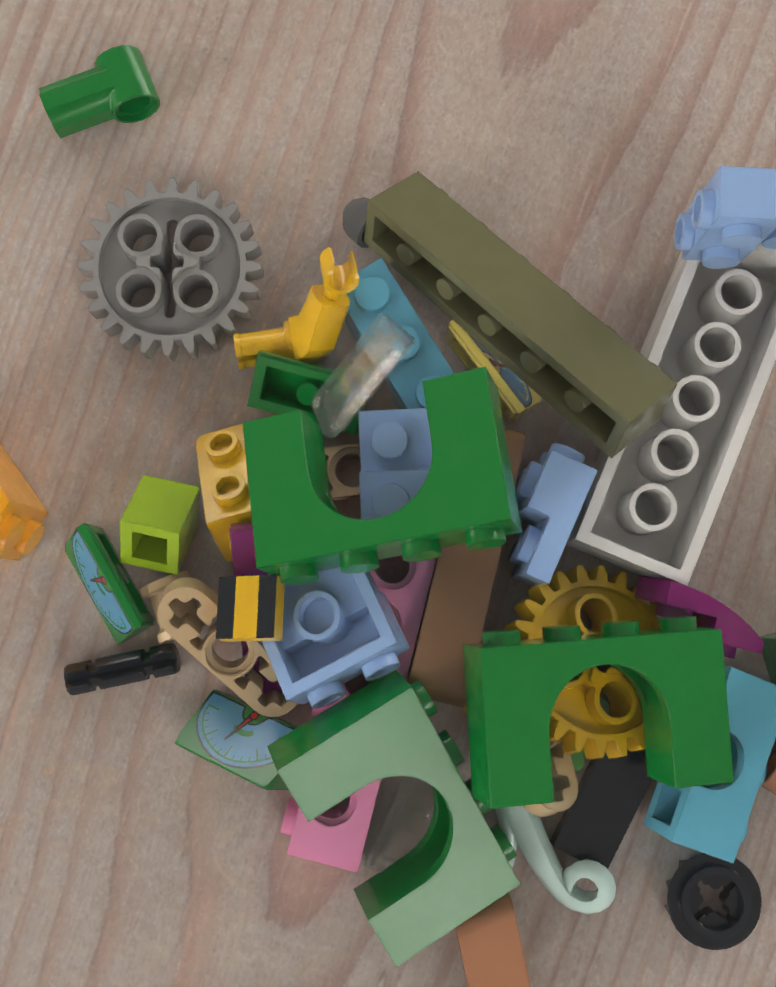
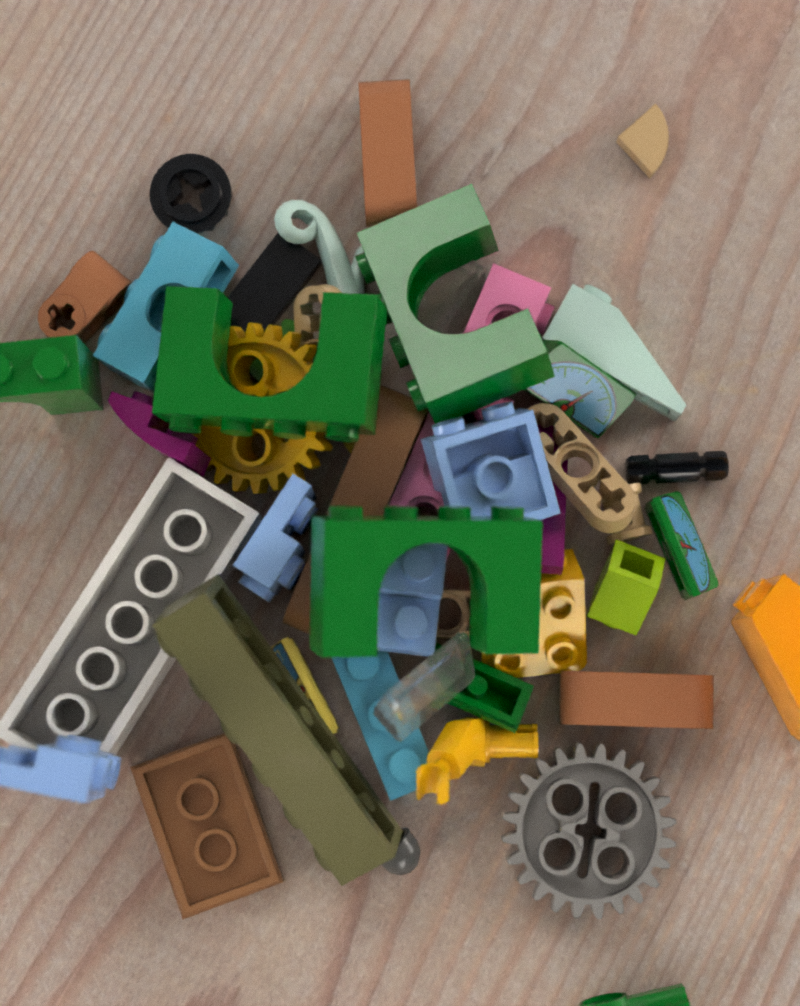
camera: 165 degrees left, 0 degrees up
(136, 409) = (636, 699): none -> nougat beam
(213, 800) = (606, 339): none -> light aqua slope
(250, 608) = (553, 493): tile -> none
(565, 218) = (207, 825): none -> medium nougat tile

